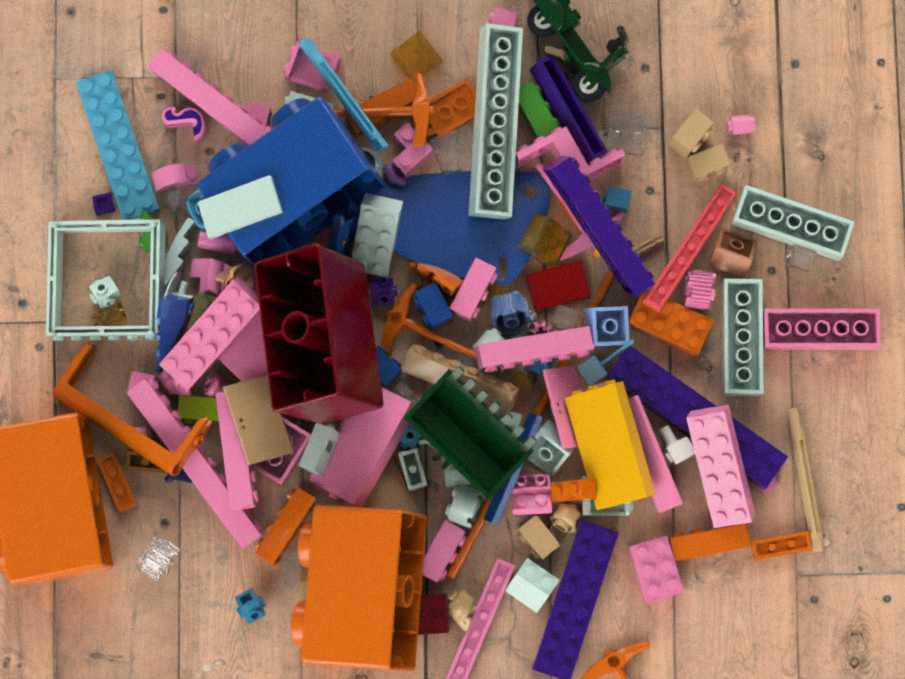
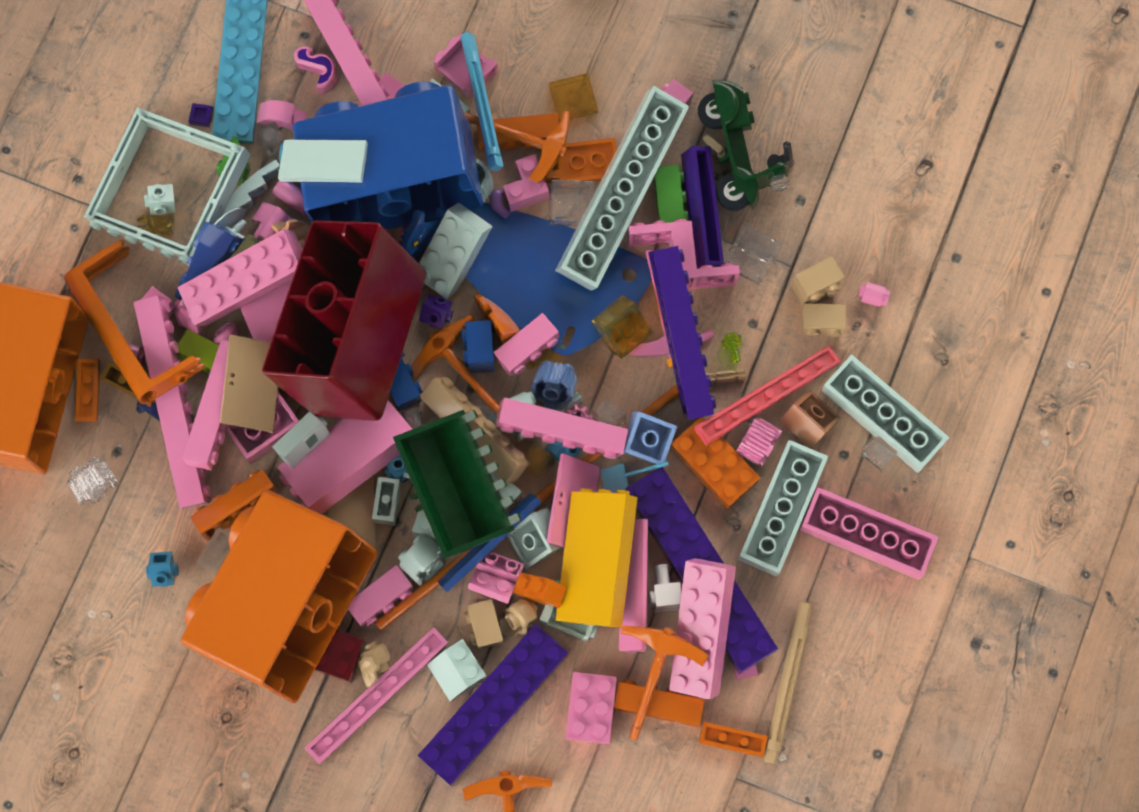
camera: 25 degrees right, 5 degrees down
(558, 286) = (617, 379): red tile -> none
(617, 199) = (714, 317): dark azure brick -> none
(640, 213) = (732, 341): none -> clear neon green plate
(697, 492) = (664, 644): none -> orange piece

